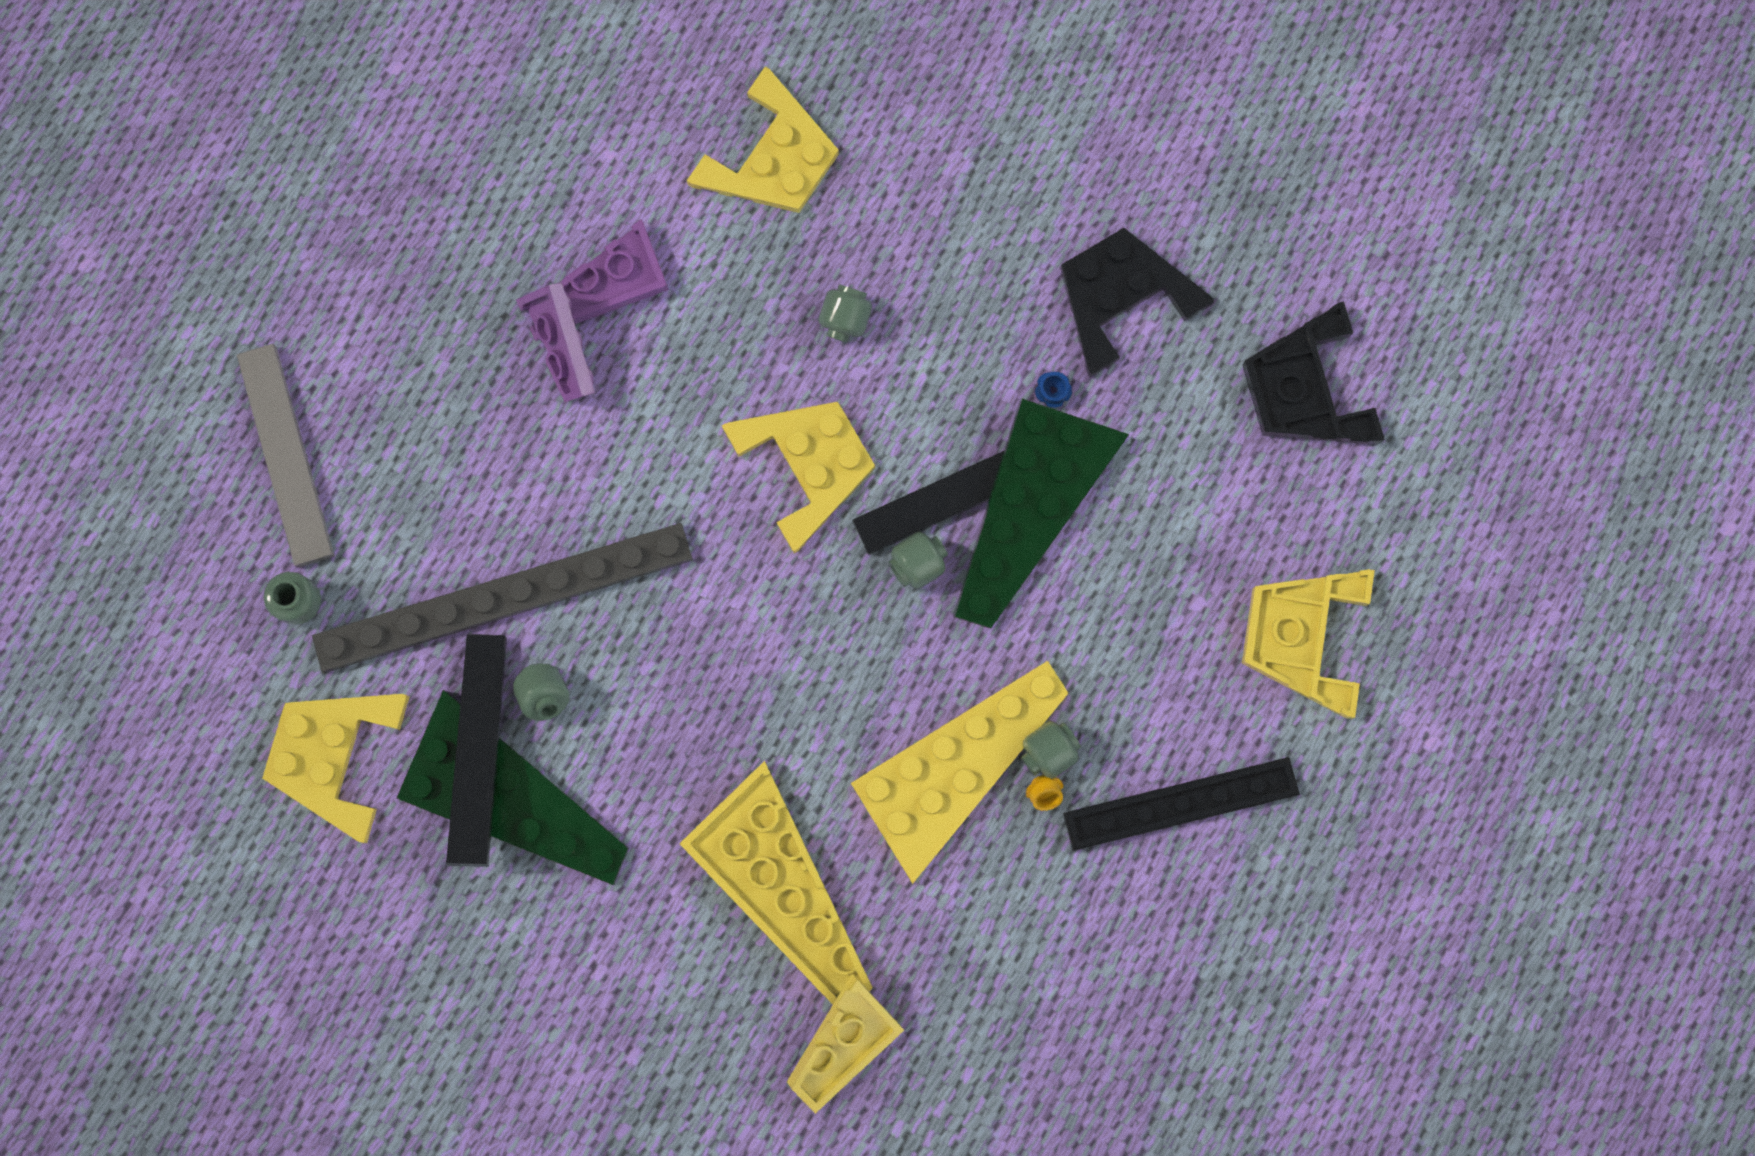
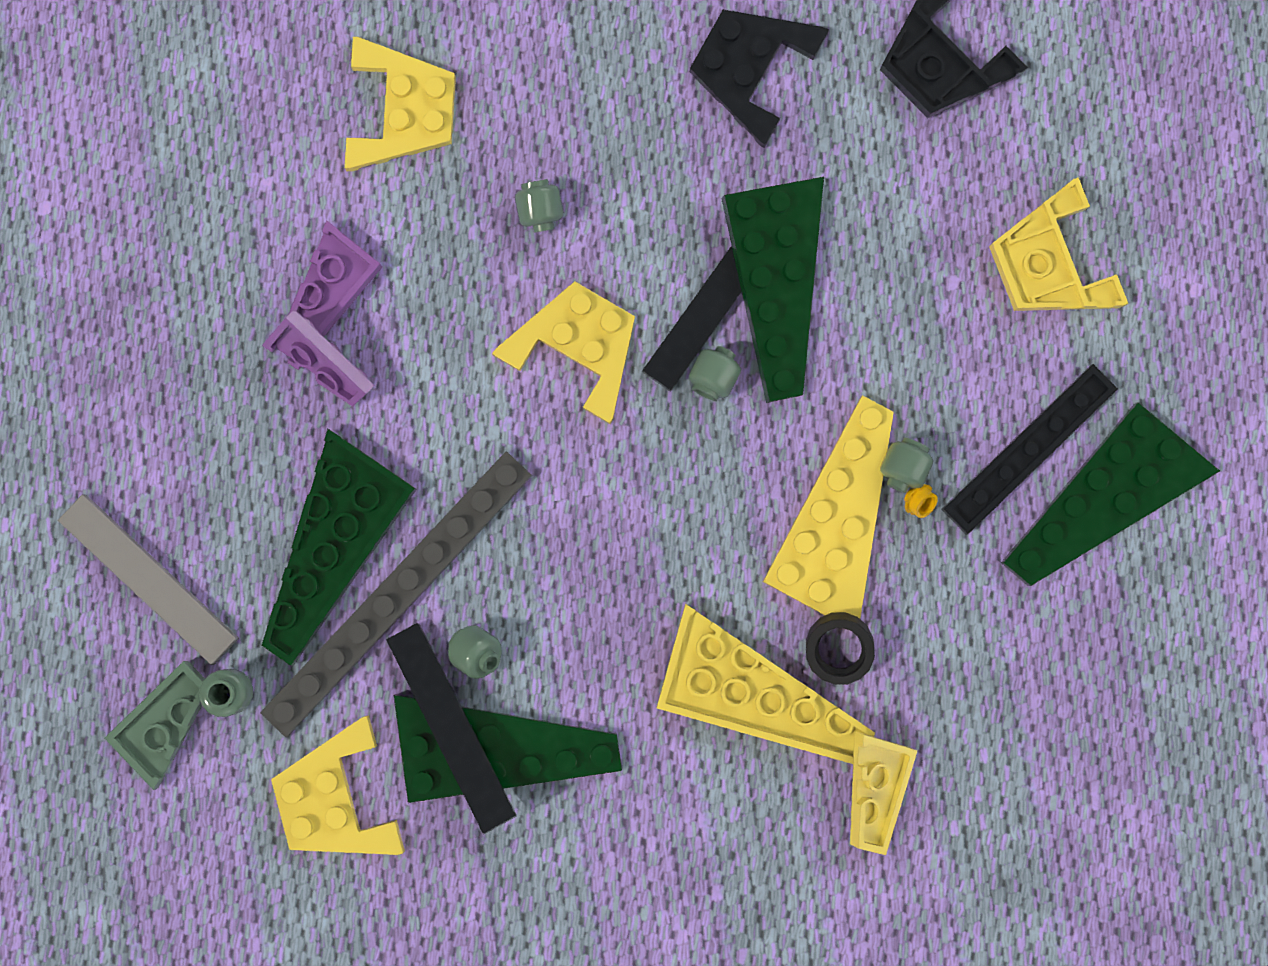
camera: 30 degrees left, 5 degrees up
(214, 593) = (159, 724): none -> sand green wing
(482, 509) = (337, 532): none -> dark green wing
(858, 900) = (834, 675): none -> black tyre
(1049, 380) = (744, 165): blue plate -> none
(1250, 888) = (1122, 481): none -> dark green wing

